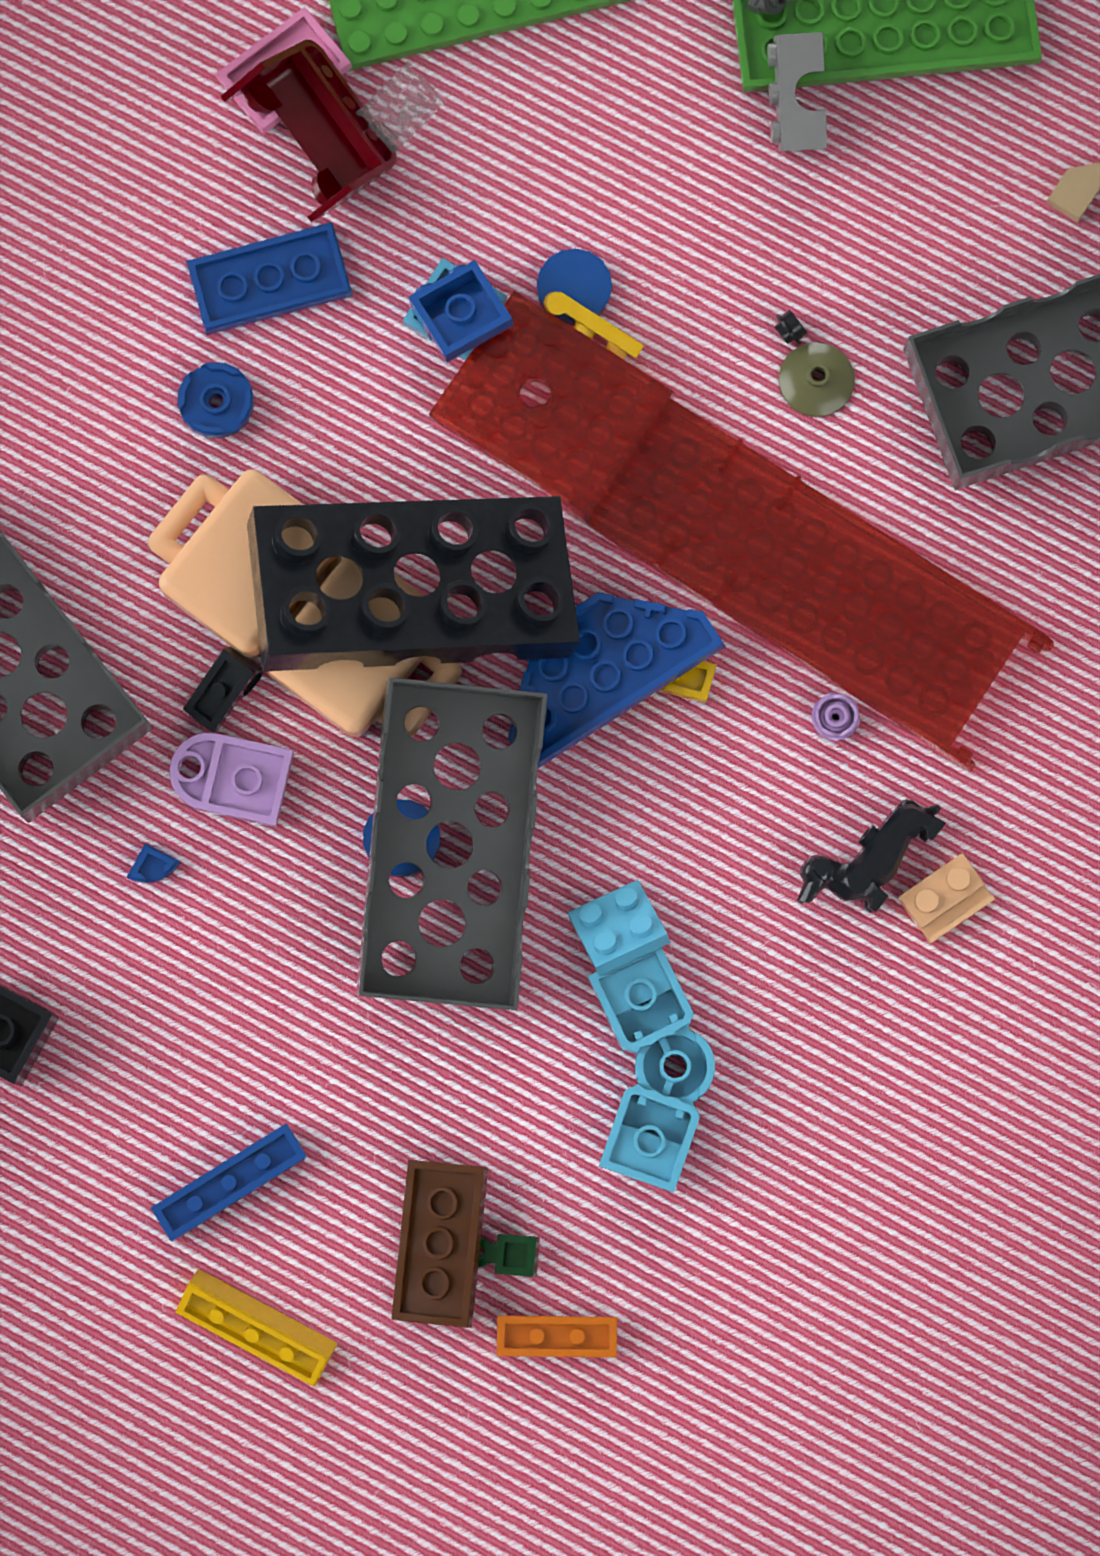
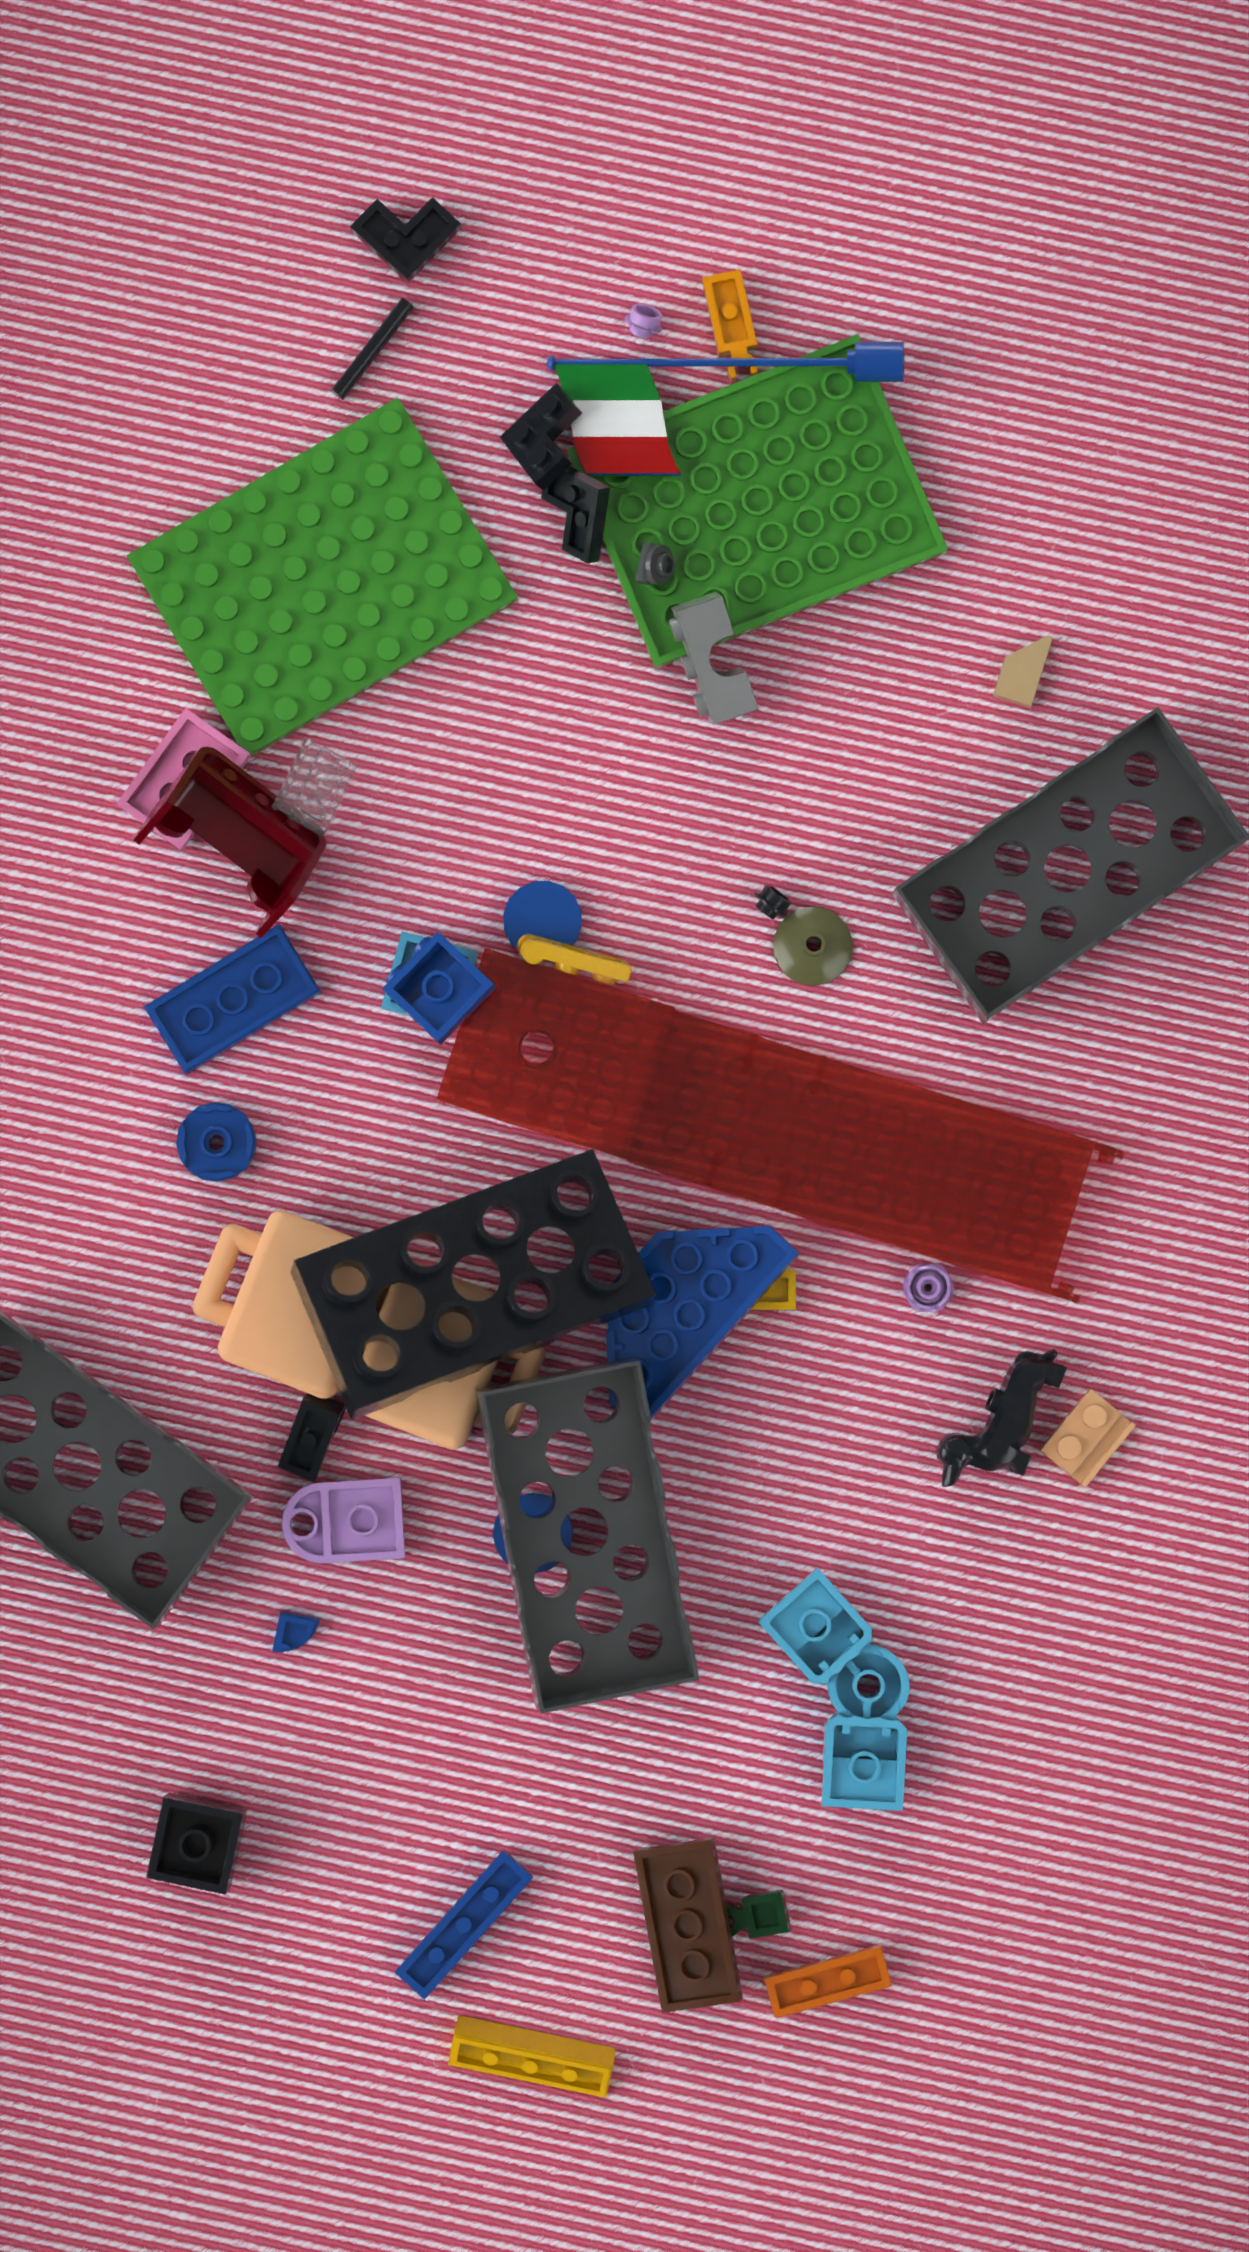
camera: 15 degrees left, 5 degrees up
(618, 927) = (774, 1563): medium azure plate -> none

